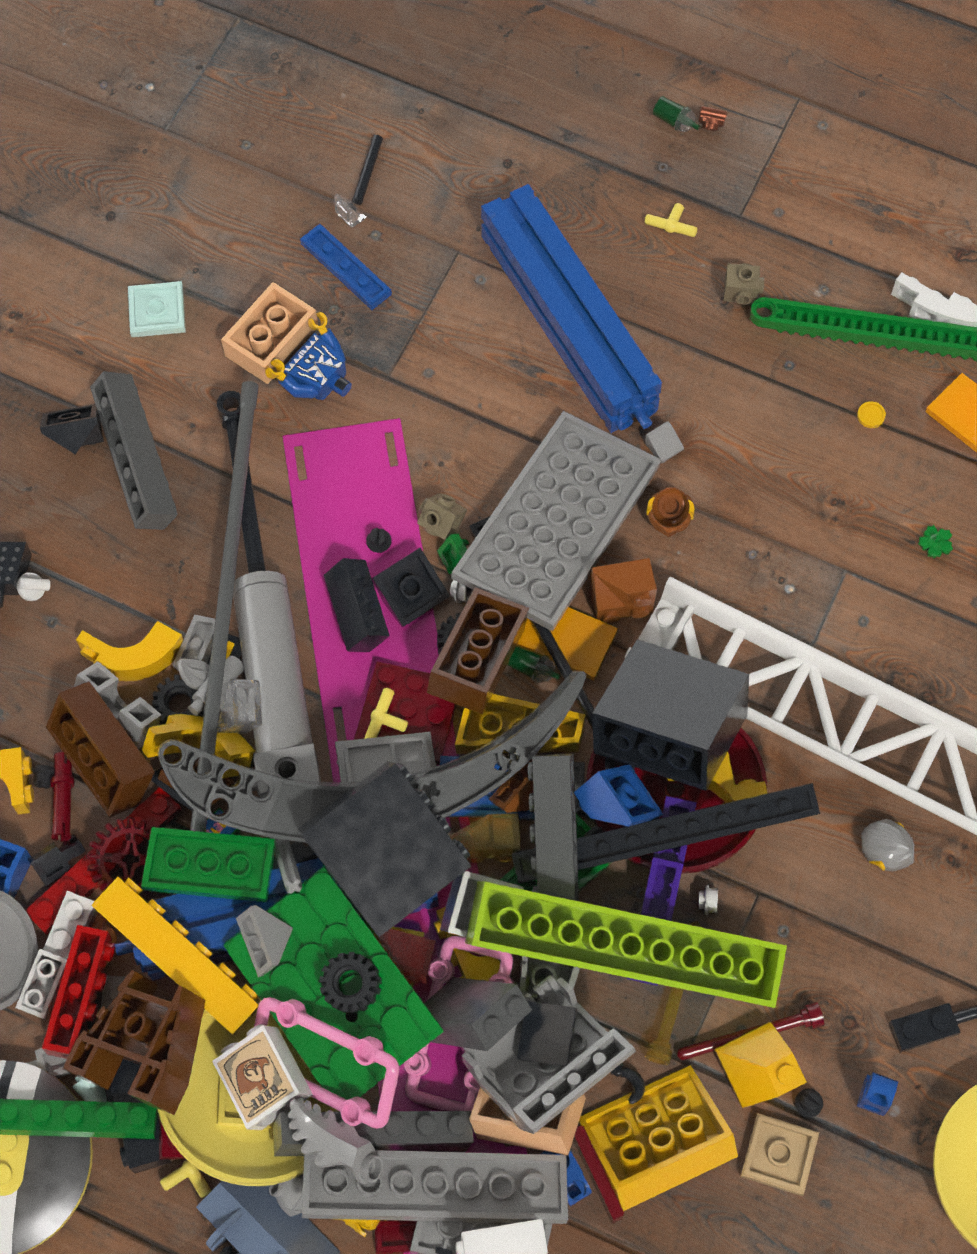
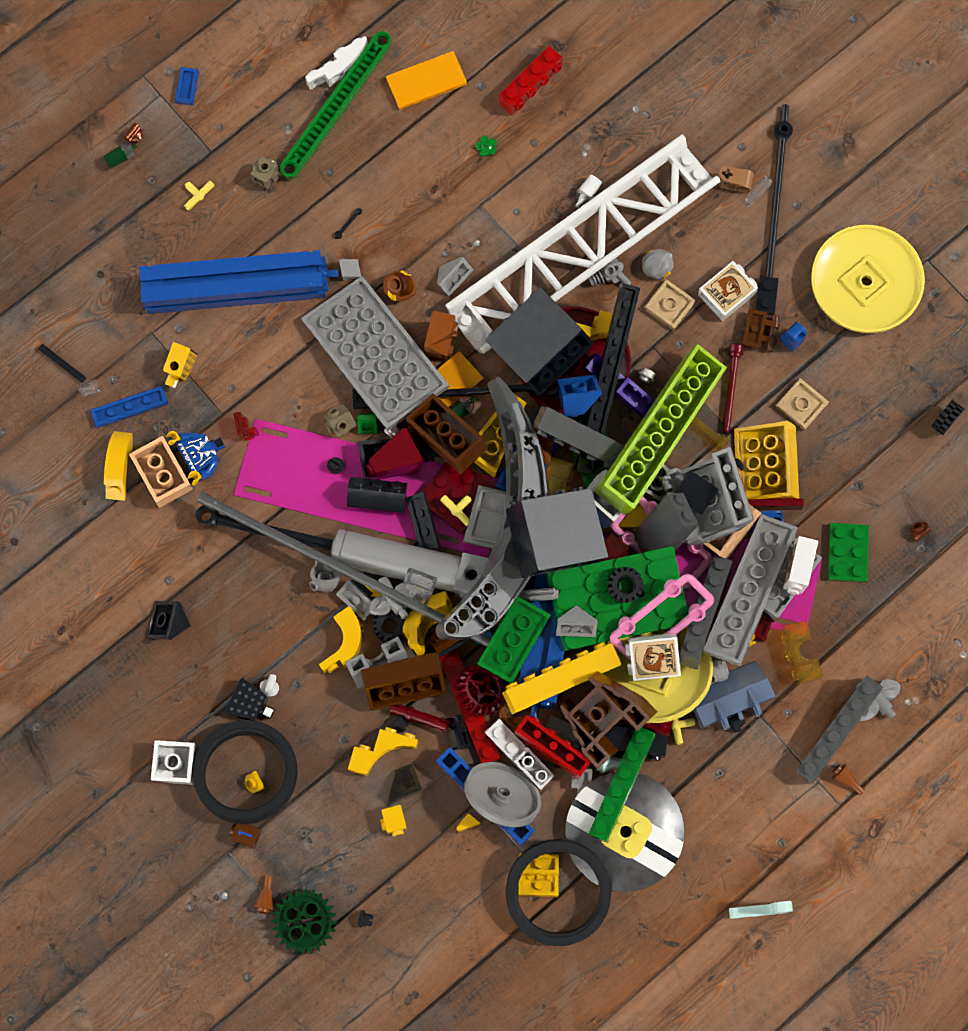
camera: 65 degrees left, 10 degrees up
(133, 451) = (205, 588): dark grey brick -> none
(156, 309) = (102, 537): light aqua tile -> none
(205, 586) = (323, 578): none -> light grey helmet
(256, 275) = (116, 464): none -> yellow arch
(334, 1141) = (709, 630): light grey plant -> none
(344, 682) = (423, 521): none -> black plate
(378, 402) = (242, 427): none -> clear red bracket
(418, 603) = (396, 457): none -> dark red slope
(427, 292) = (182, 357): none -> yellow torso
(706, 411) = (338, 234): none -> black hinge
(723, 575) = (453, 274): none -> light grey slope
(760, 1066) = (752, 390): yellow slope -> none
(809, 1102) = (781, 375): black piece -> none
(812, 151) = (187, 86): none -> blue tile
(835, 890) = (669, 304): none -> tan tile
(838, 781) = (609, 272): none -> light grey piece
(859, 1030) = (754, 330): none -> reddish brown plate
(871, 414) = (386, 141): yellow piece -> none
(900, 964) = (728, 290): none -> brick
(946, 699) = (587, 190): none -> white piece

